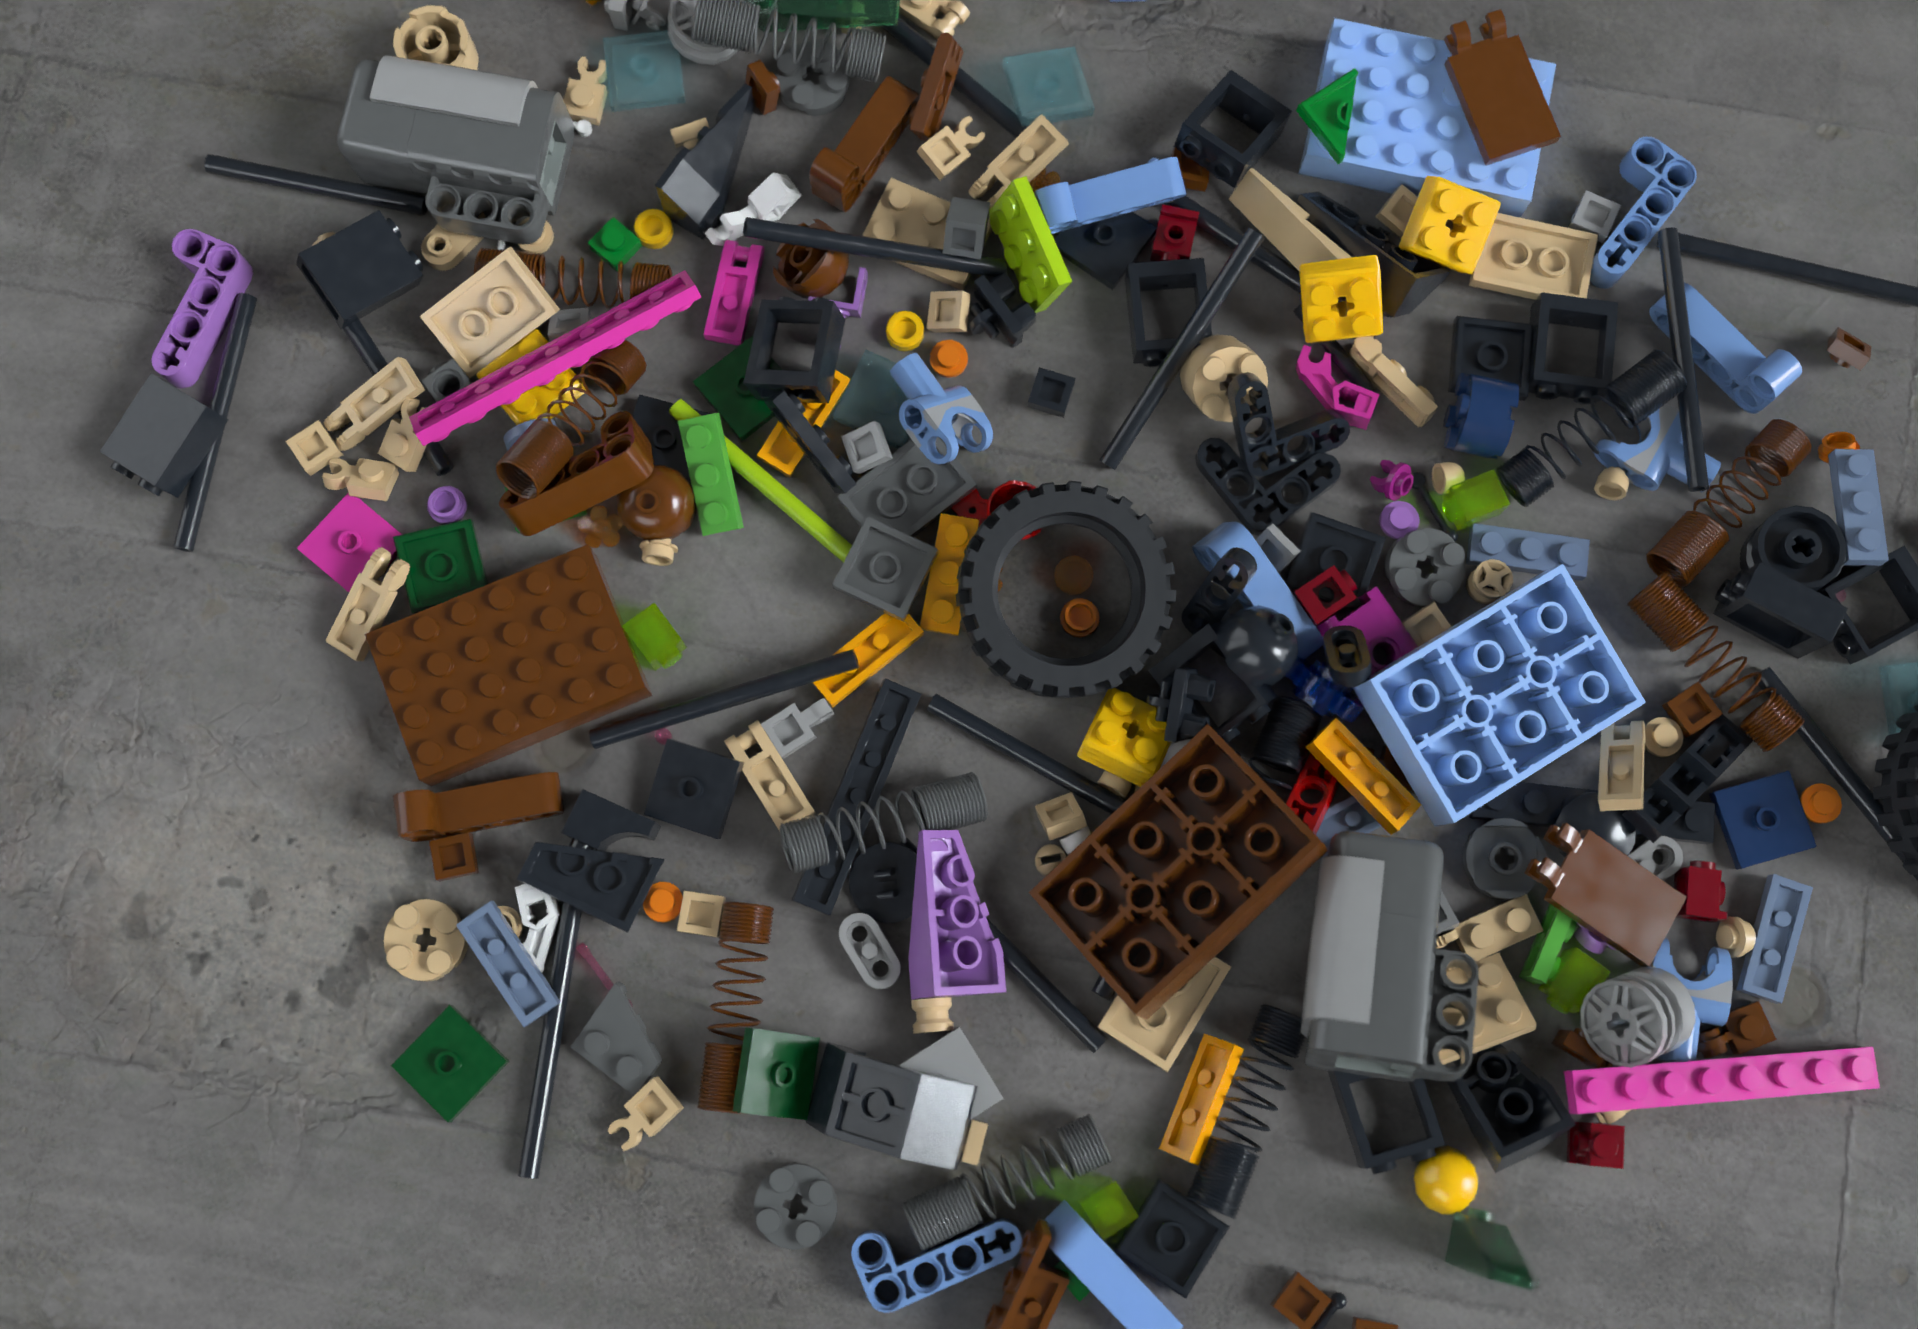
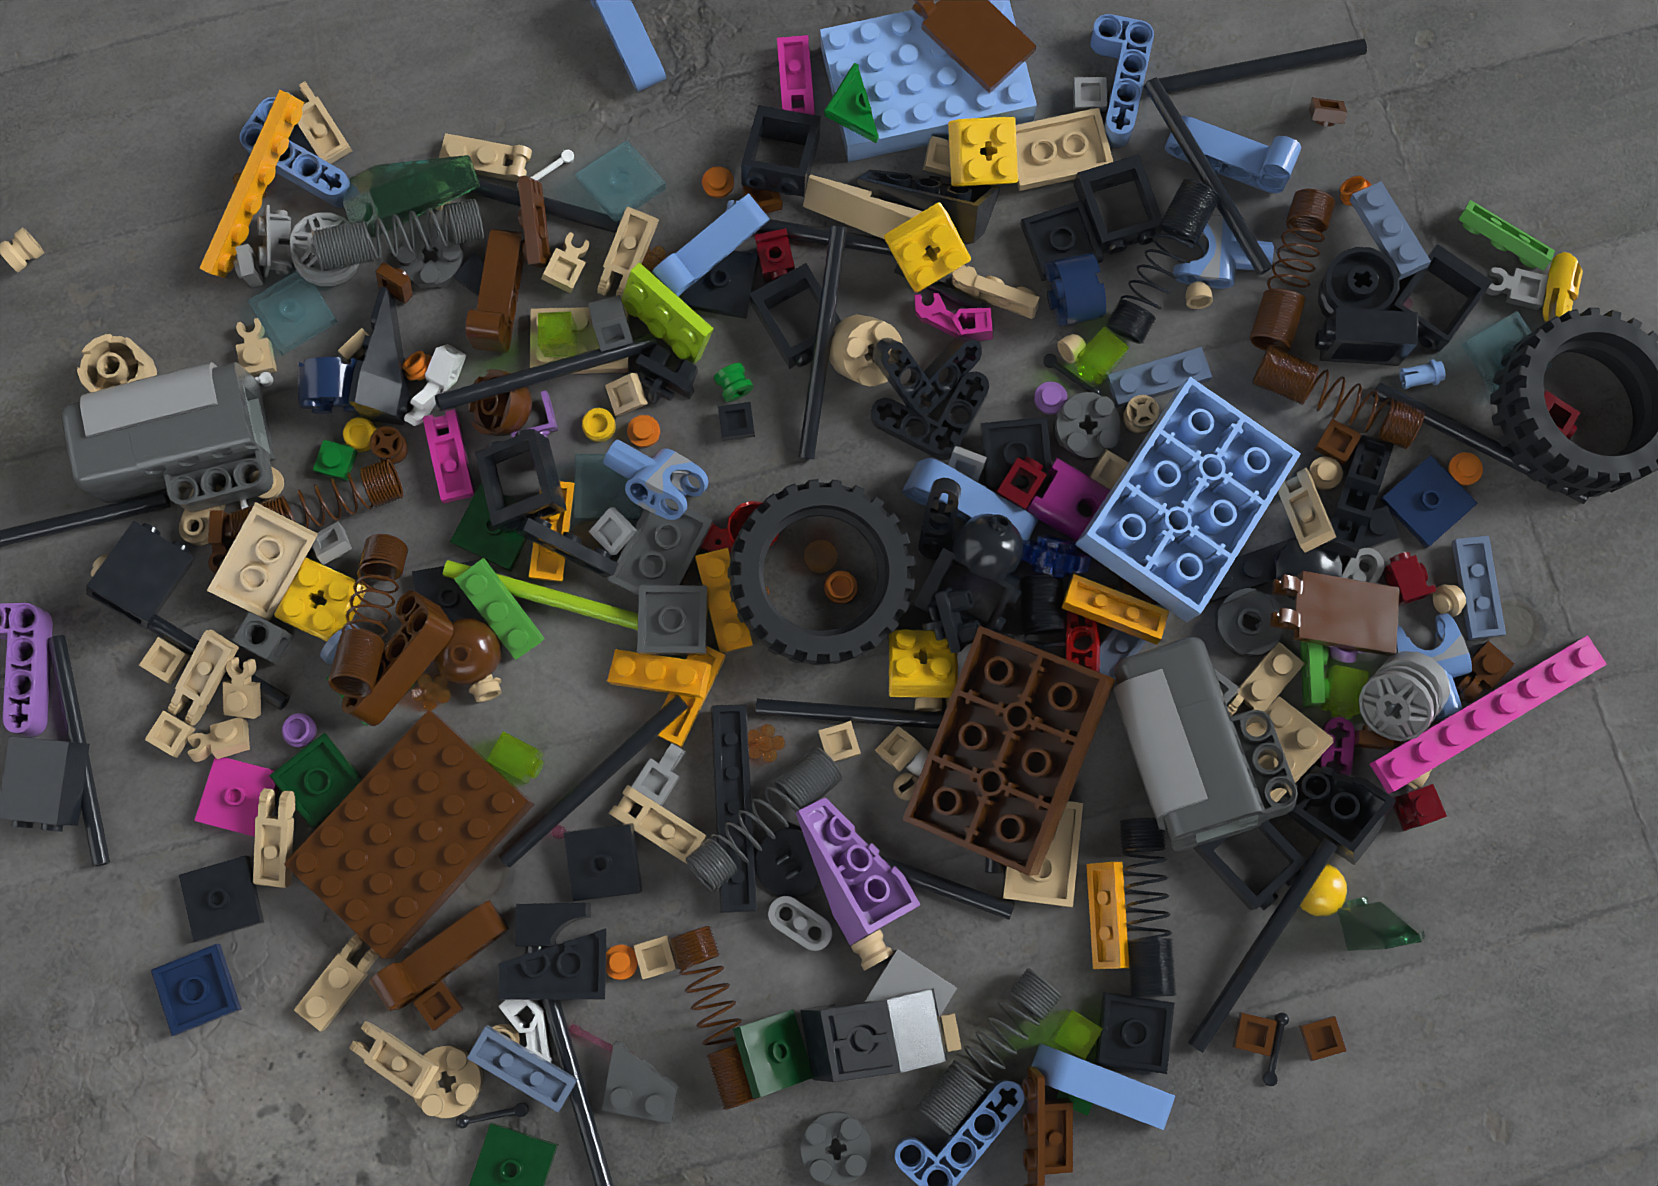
camera: 20 degrees left, 0 degrees up
(216, 722) = (195, 989): none -> dark blue plate
(286, 641) = (221, 898): none -> black plate
(344, 369) = (164, 660): none -> tan plate
(359, 786) = (335, 985): none -> tan hinge
(382, 893) = (396, 1061): none -> tan hinge
(459, 267) = (220, 537): none -> reddish brown plate
(488, 1006) = (520, 1110): none -> black hinge
(549, 360) = (331, 575): dark pink plate -> none
(639, 158) = (325, 384): none -> dark blue brick
(649, 1111) = (687, 1130): tan plate -> none
(674, 244) = (383, 440): none -> reddish brown wheel
(744, 183) = (416, 366): none -> orange plate
(845, 113) = (471, 273): none -> black tile
(845, 619) = (659, 673): none -> light orange plate
(905, 214) = (557, 334): none -> clear neon green brick
(922, 745) = (765, 743): none -> clear orange plant
(1001, 779) = (840, 742): none -> tan plate
(1003, 37) = (567, 157): none -> white hinge
(1067, 349) = (733, 382): none -> green wheel
(1150, 133) = (718, 182): none -> orange plate
(1286, 54) = (795, 73): none -> dark pink plate
(1347, 655) = (1060, 523): black plate -> none
(1355, 1210) = (1263, 945): none -> black piece
(1396, 483) = (1035, 369): magenta plate -> none
(1545, 1042) = (1345, 745): none -> magenta beam
(1827, 681) = (1422, 374): none -> light blue pin

